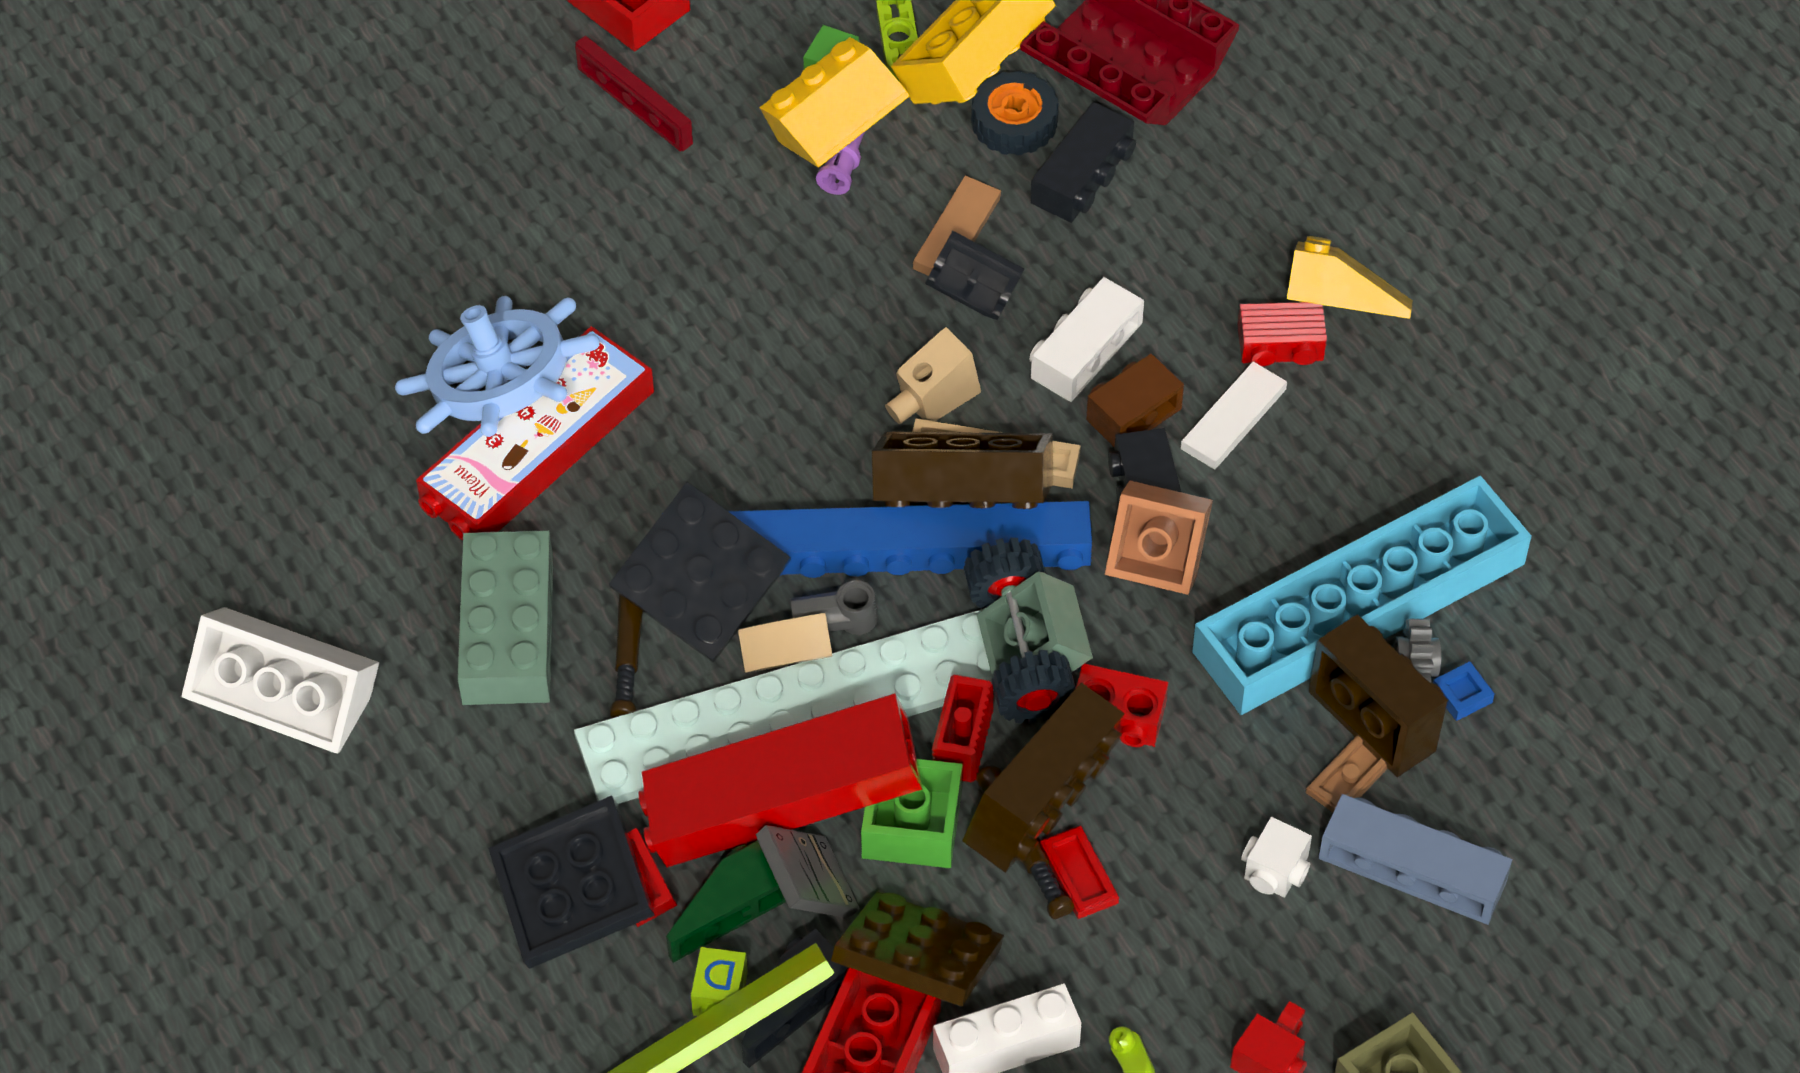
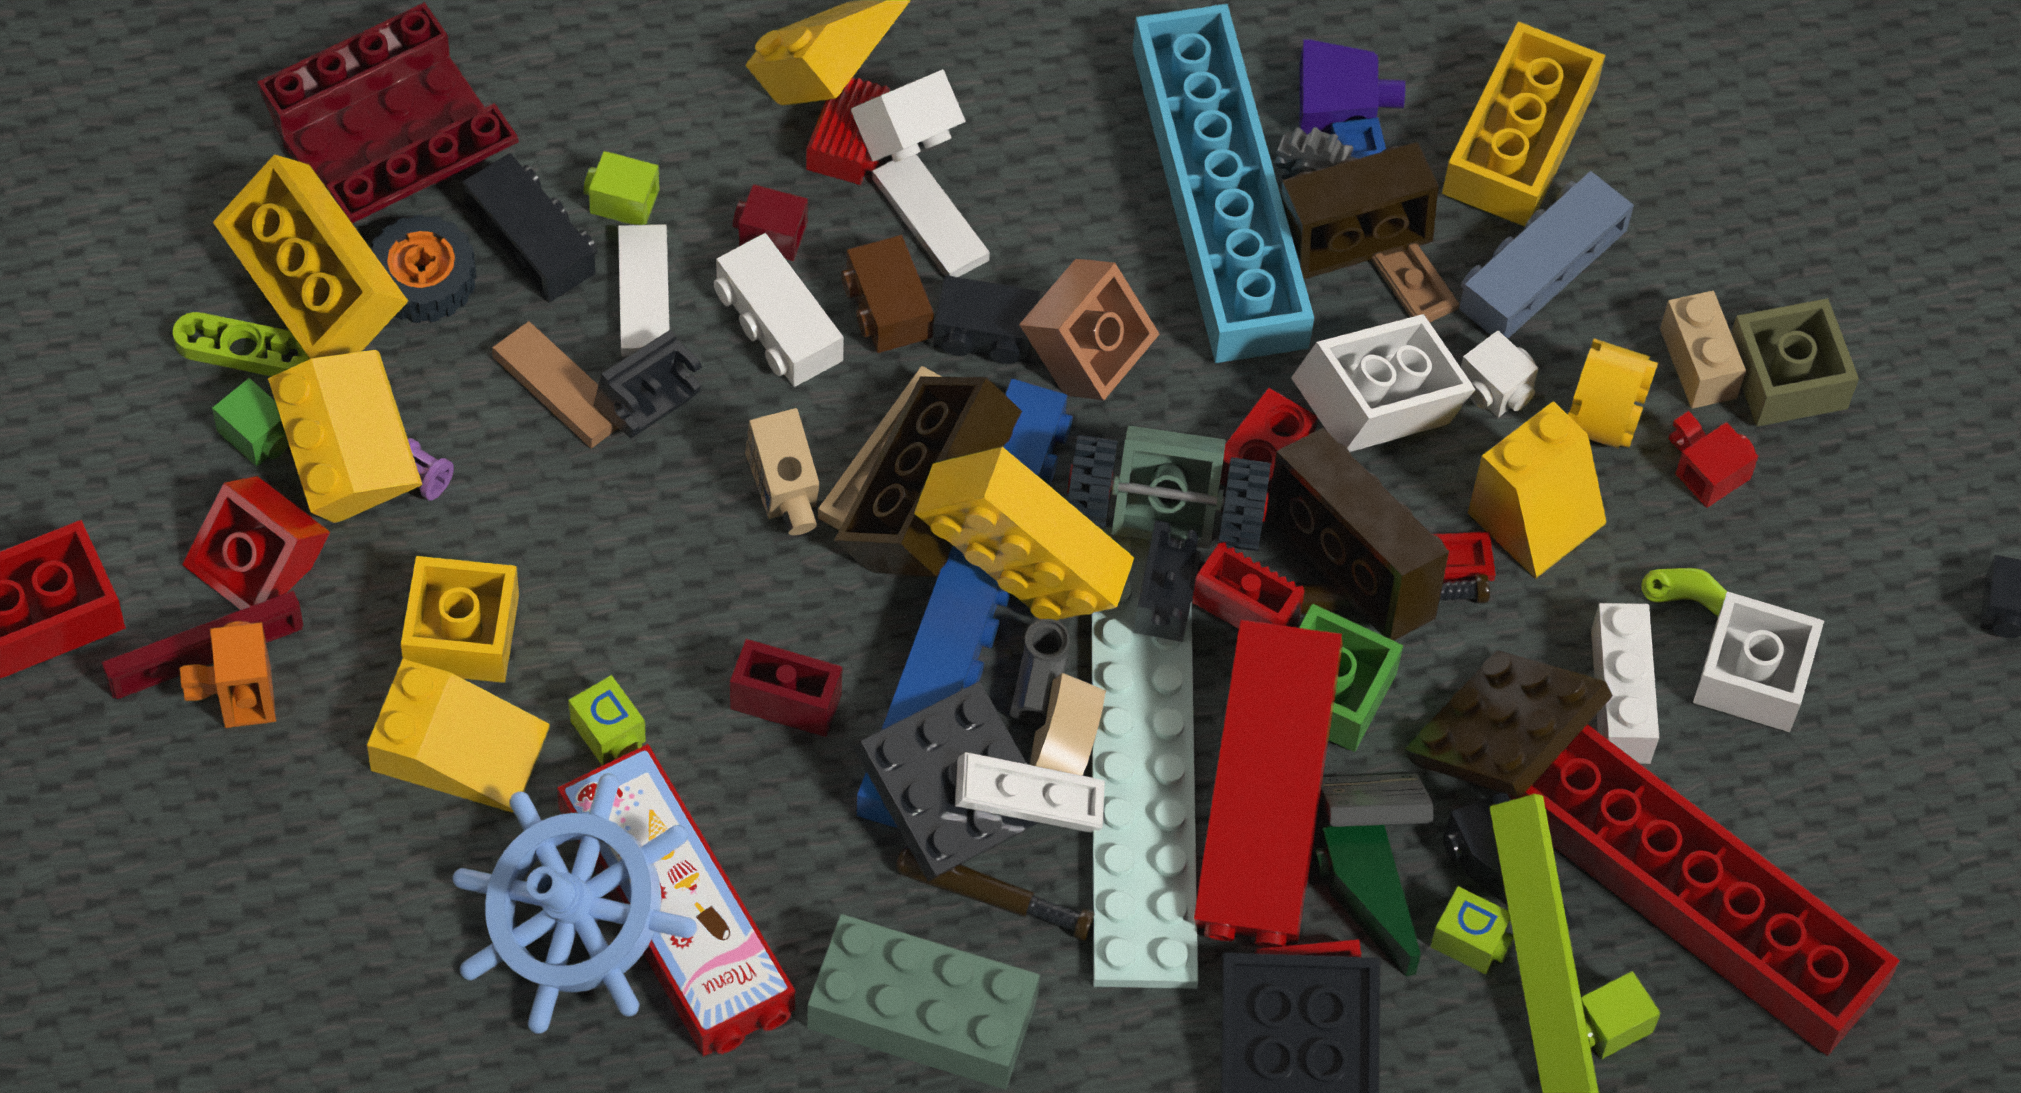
camera: 75 degrees left, 5 degrees up
(608, 114) = (238, 676): none -> orange brick
(618, 260) = (454, 737): none -> yellow slope
(671, 346) = (607, 720): none -> lime brick
(710, 625) = (1029, 792): none -> white tile
(714, 227) = (461, 617): none -> yellow brick
(730, 92) = (254, 543): none -> red slope
(741, 443) = (786, 687): none -> dark red brick
(919, 532) = (1024, 535): none -> yellow brick
(932, 657) = (1167, 584): none -> black hinge
(1070, 253) = (642, 285): none -> white tile
(1147, 208) = (622, 188): none -> lime brick
(1160, 909) = (1539, 490): none -> yellow slope
(1166, 310) = (773, 213): none -> dark red brick
(1209, 760) = (1383, 383): none -> white brick
(1288, 940) = (1607, 393): none -> yellow brick
(1303, 357) = (908, 116): none -> white brick
(1381, 1004) = (1702, 349): none -> tan brick
(1510, 658) = (1342, 86): none -> dark purple torso
(1546, 801) = (1523, 124): none -> yellow brick

